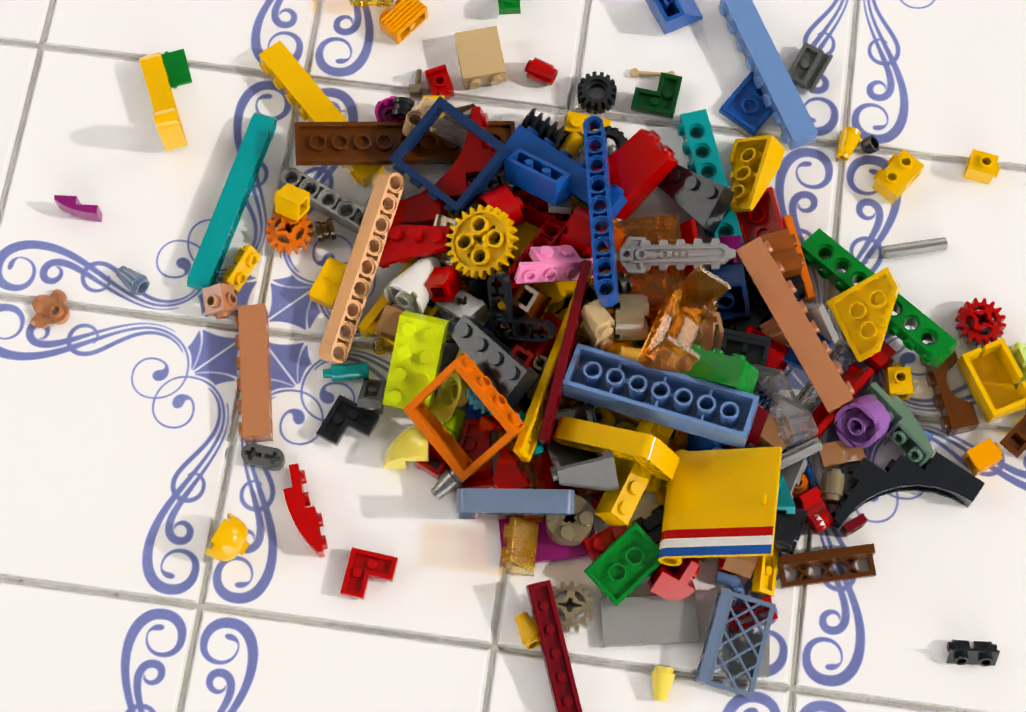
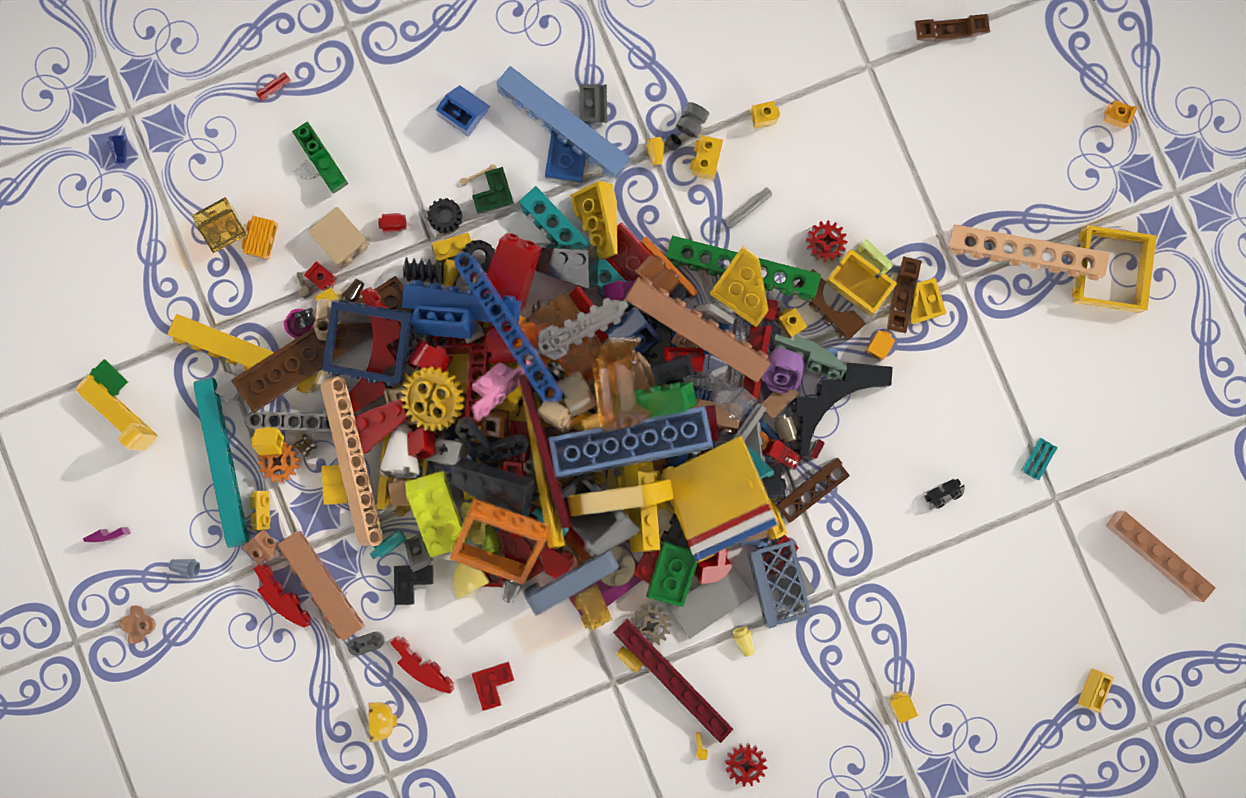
camera: 35 degrees left, 15 degrees up
(207, 368) = (284, 604): none -> red slope
(283, 137) = (227, 389): none -> light grey brick
(904, 132) = (693, 118): none -> dark grey wheel

